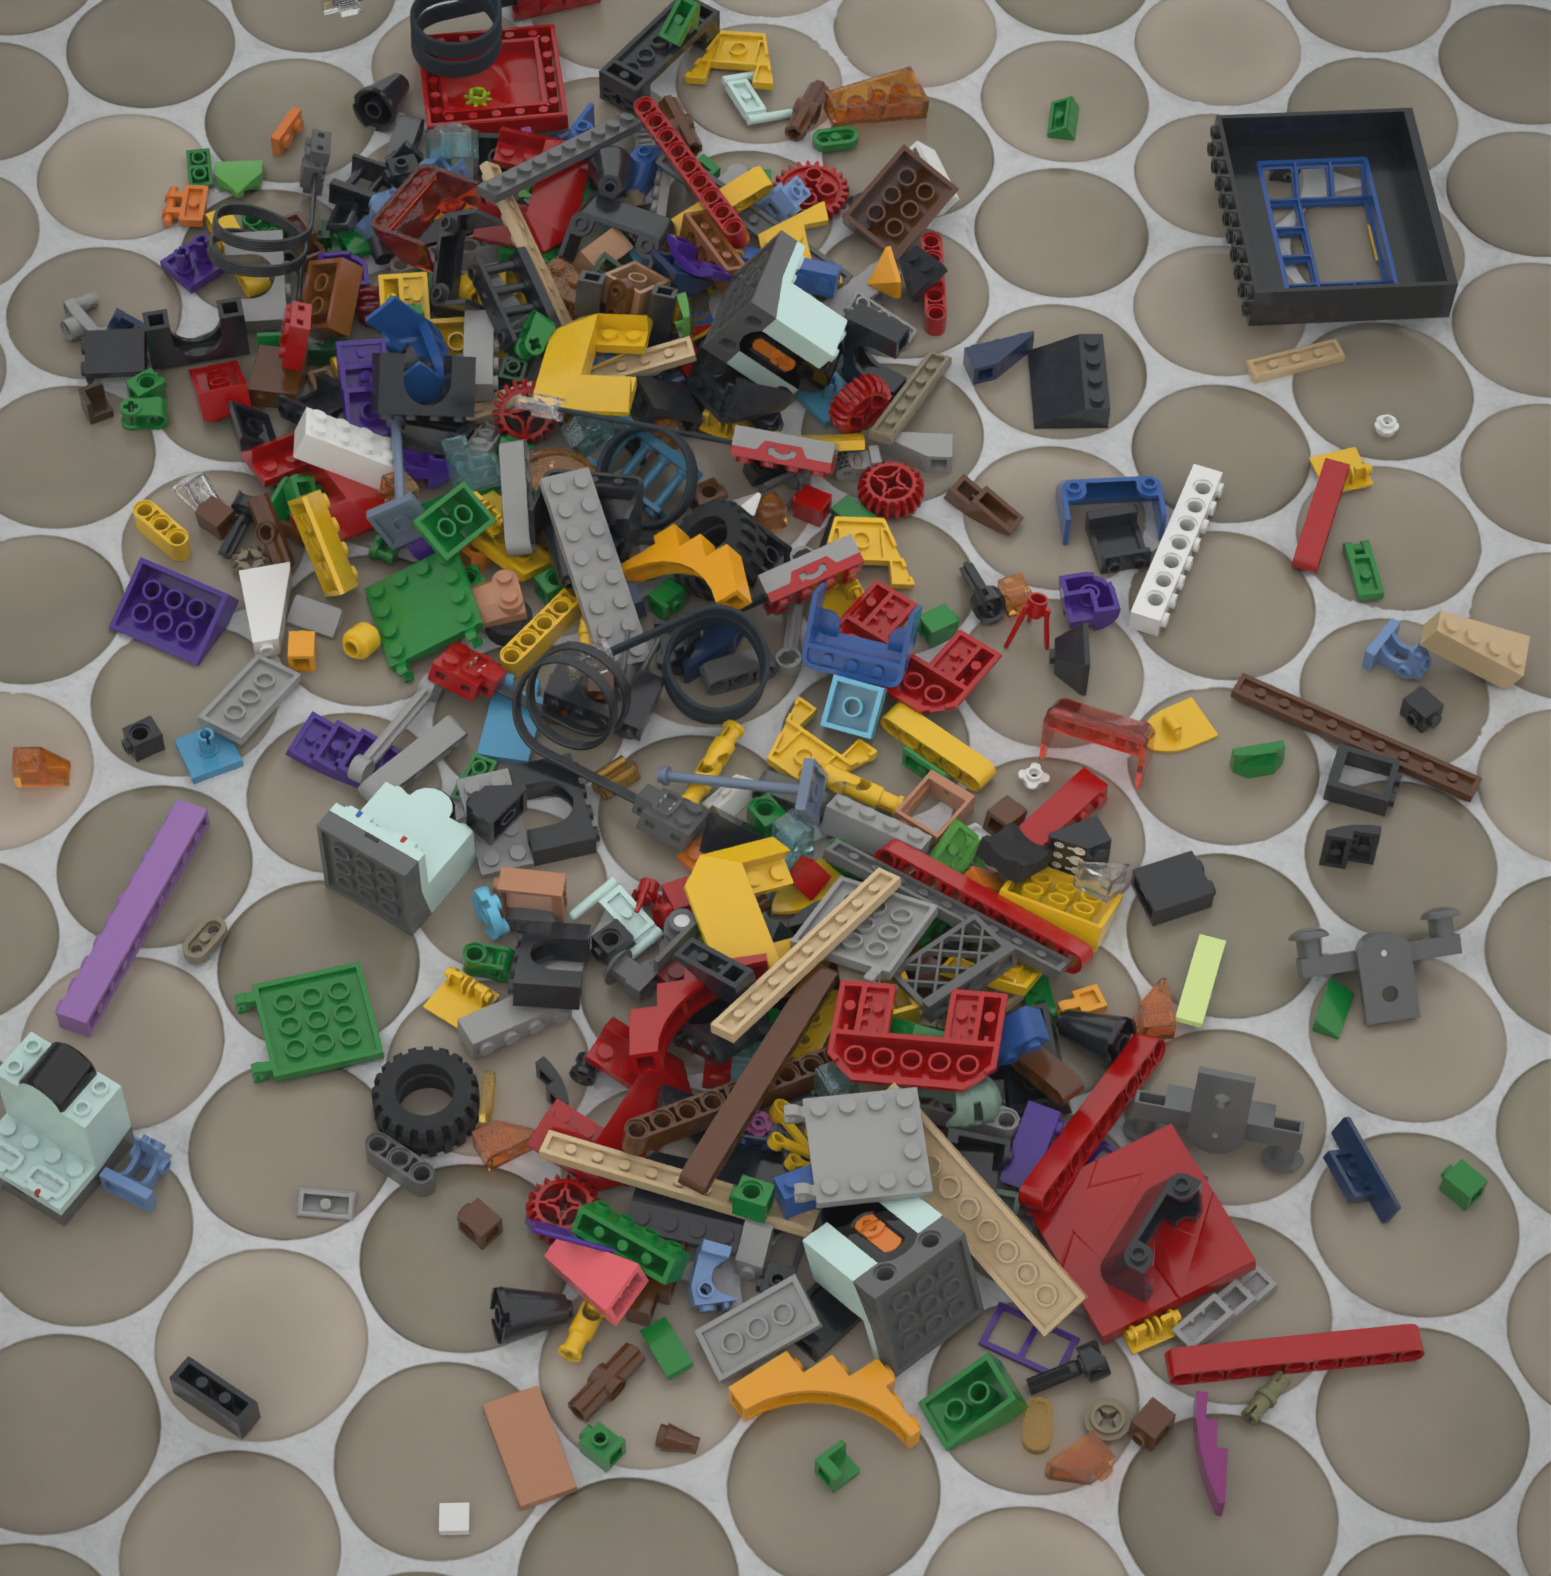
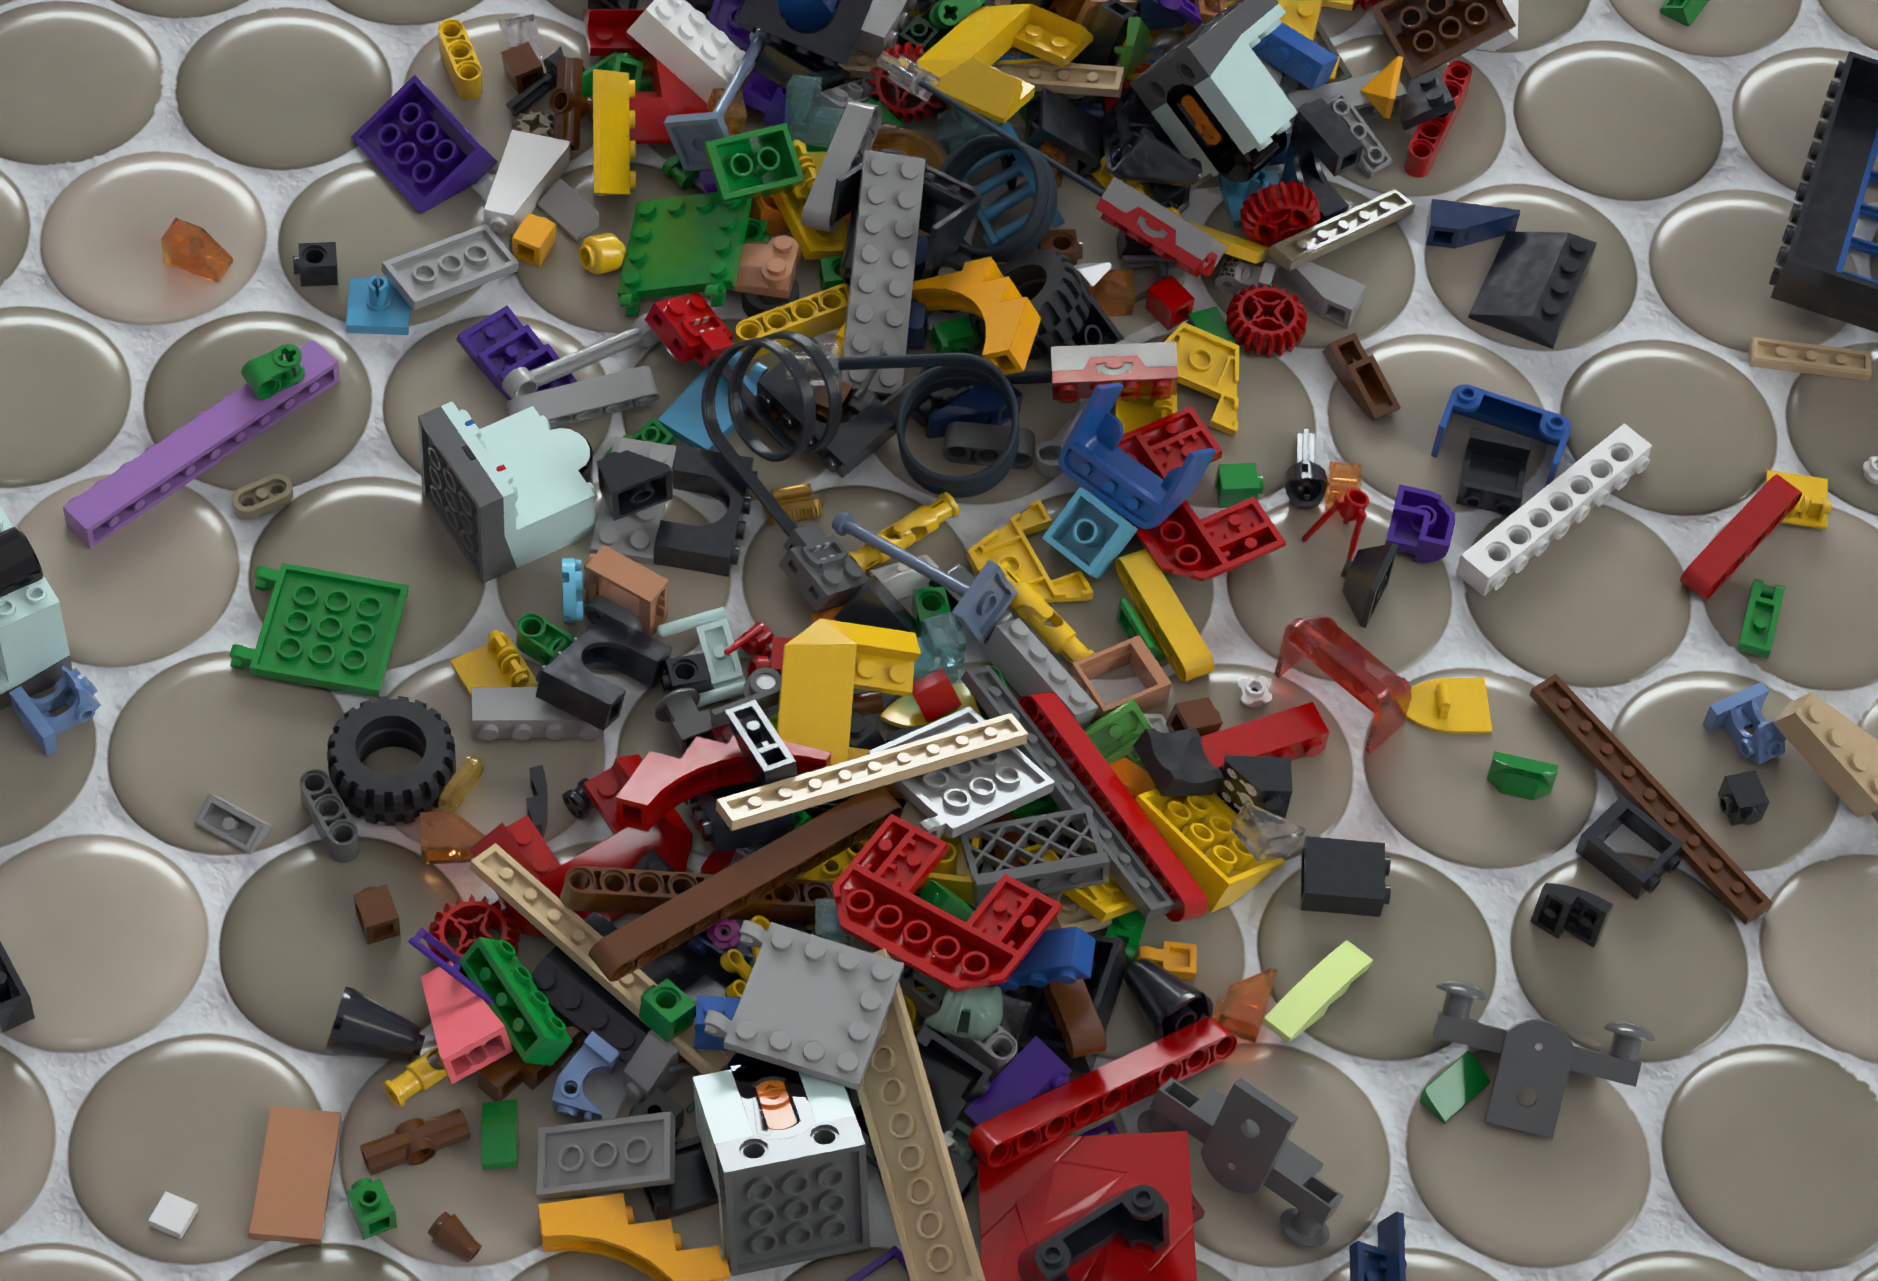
camera: 20 degrees right, 0 degrees up
(165, 836) = (271, 373): none -> green piece

